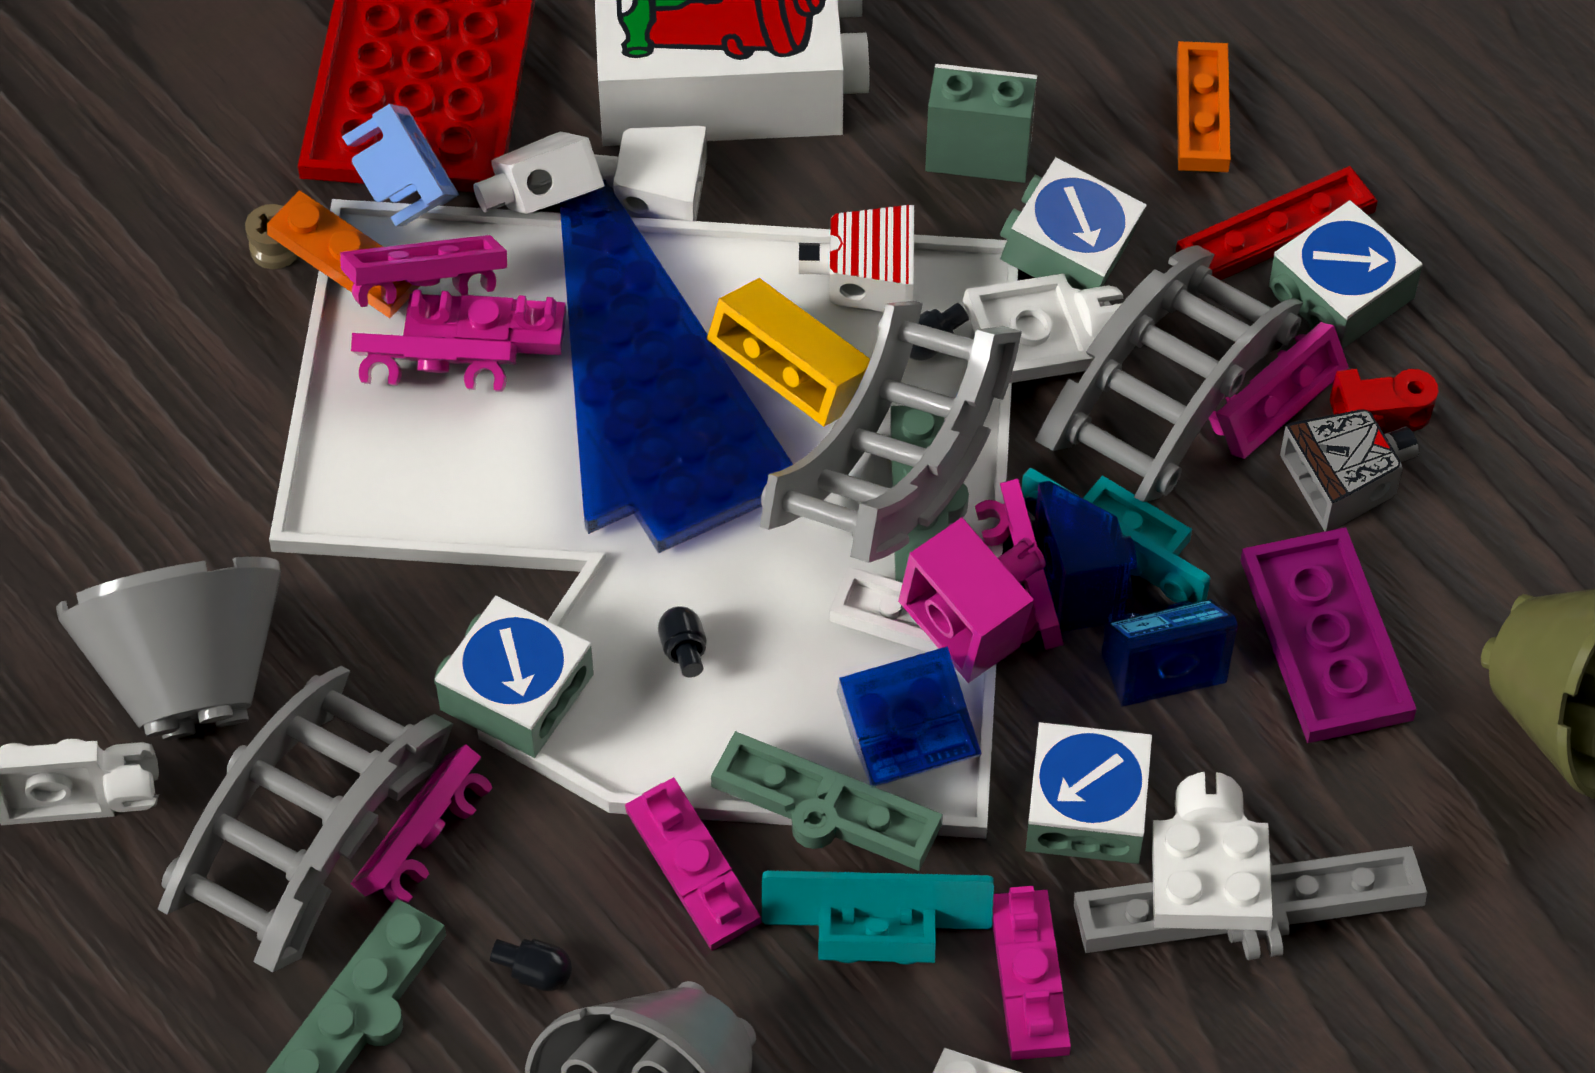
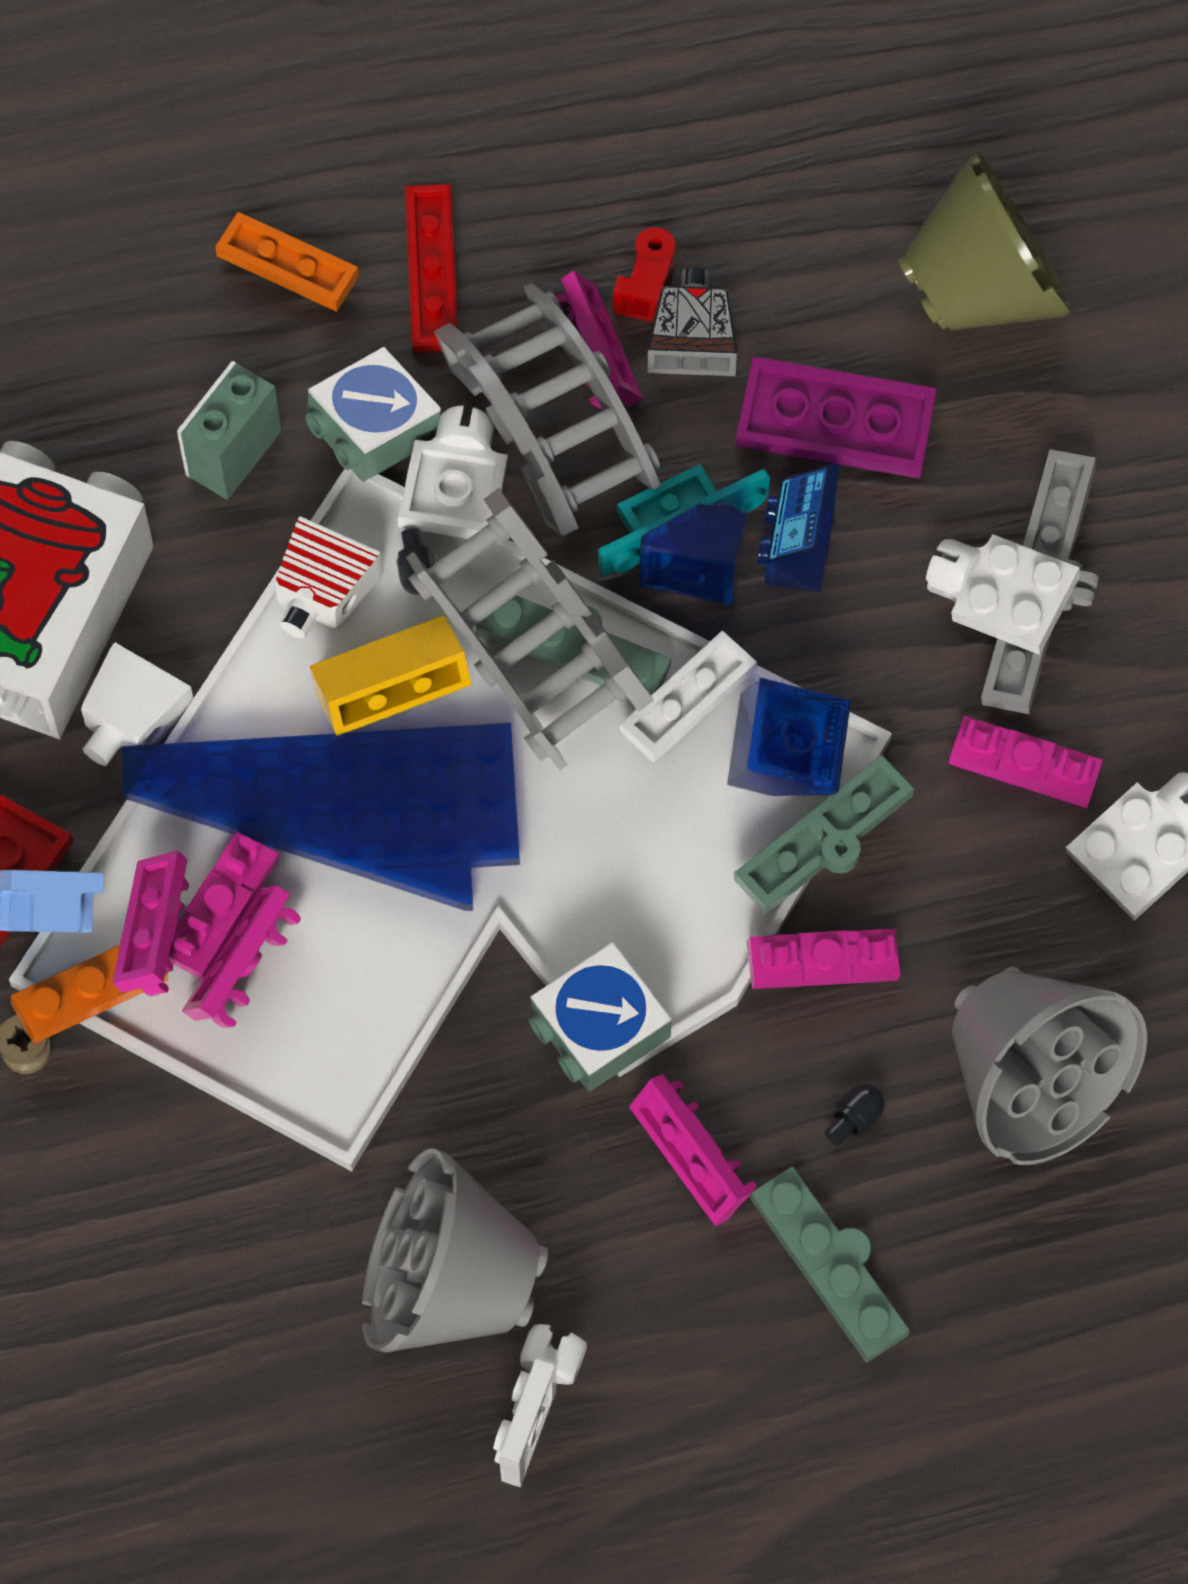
camera: 65 degrees left, 10 degrees up
(345, 820) = (684, 1195): light grey fence -> none
(557, 171) = (96, 791): white torso -> none
(683, 639) = (620, 877): black cylinder -> none
(877, 913) = (936, 844): teal bracket -> none
(970, 596) = (721, 640): dark pink brick -> none
(1016, 522) = (676, 596): dark pink plate -> none
(1089, 793) = (898, 646): piece -> none
(1345, 273) = (515, 241): piece -> none

